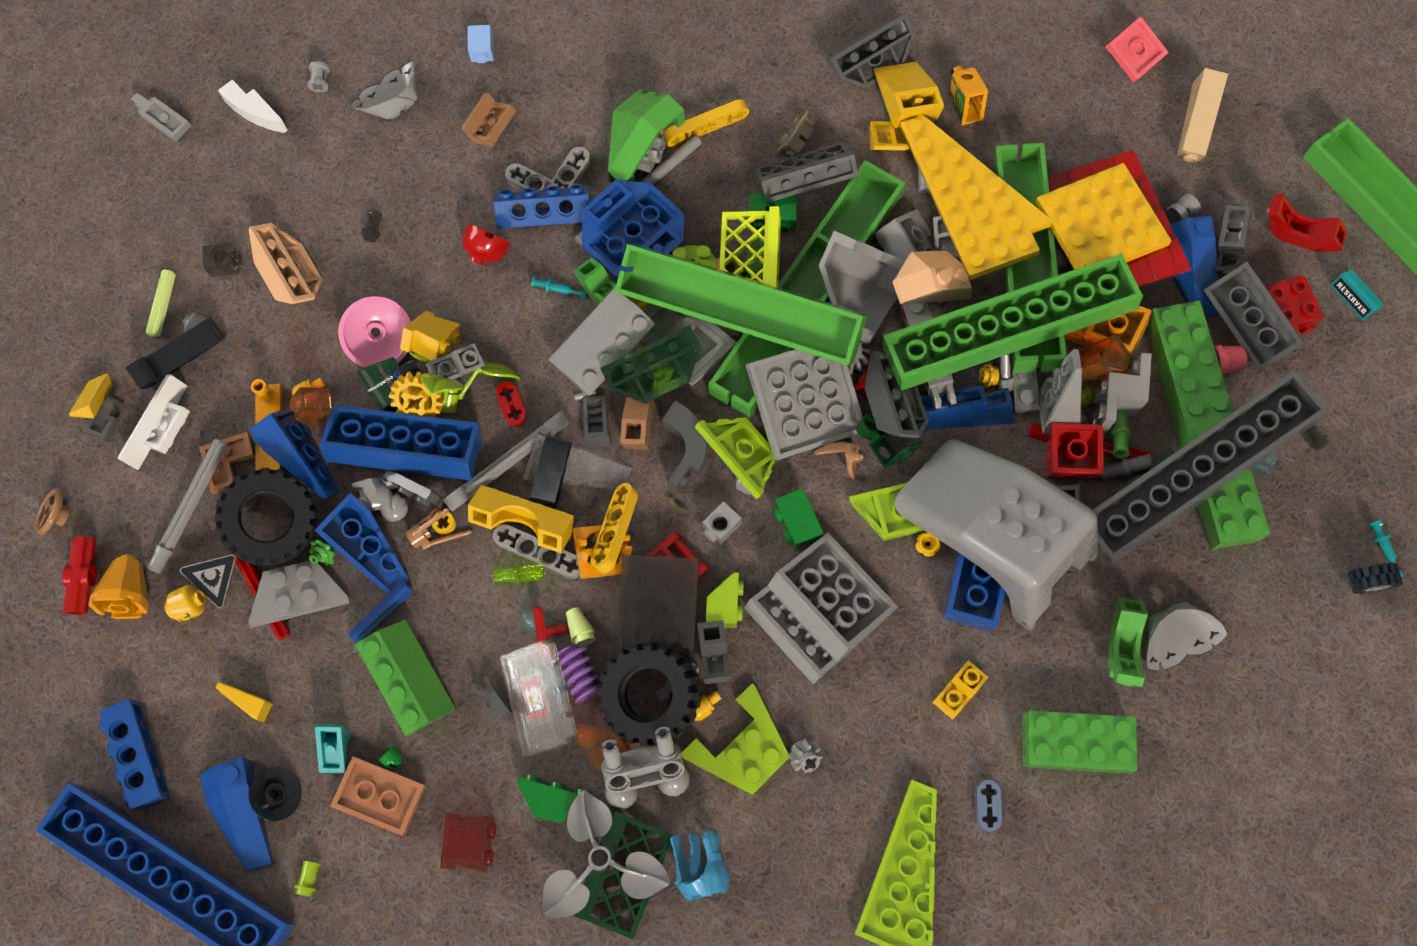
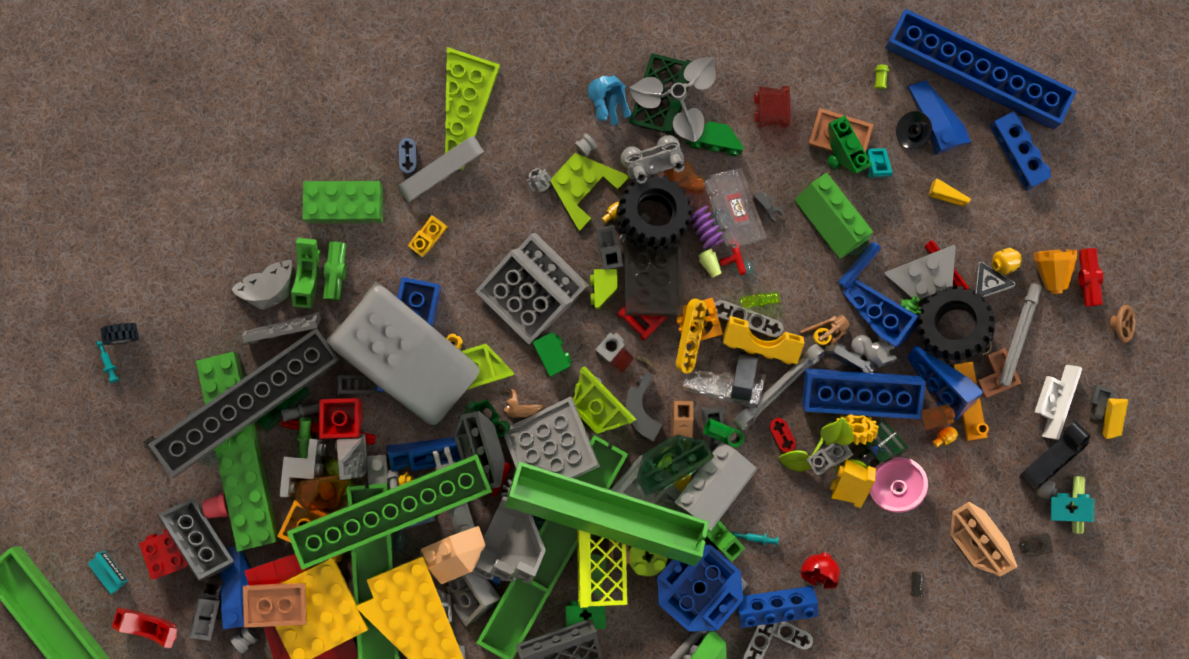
camera: 170 degrees right, 10 degrees up
(180, 290) = (1061, 512): none -> teal brick
(370, 768) = (847, 146): none -> green slope
(584, 405) = (723, 432): none -> green piece
(706, 507) = (622, 360): none -> clear red slope
(737, 803) = (585, 145): none -> light grey wheel
(942, 778) = (440, 169): none -> light grey beam
(1087, 648) = (335, 271): none -> bright green piece
(1146, 574) = (285, 327): none -> light grey wing
(1152, 222) = (274, 605): none -> nougat plate

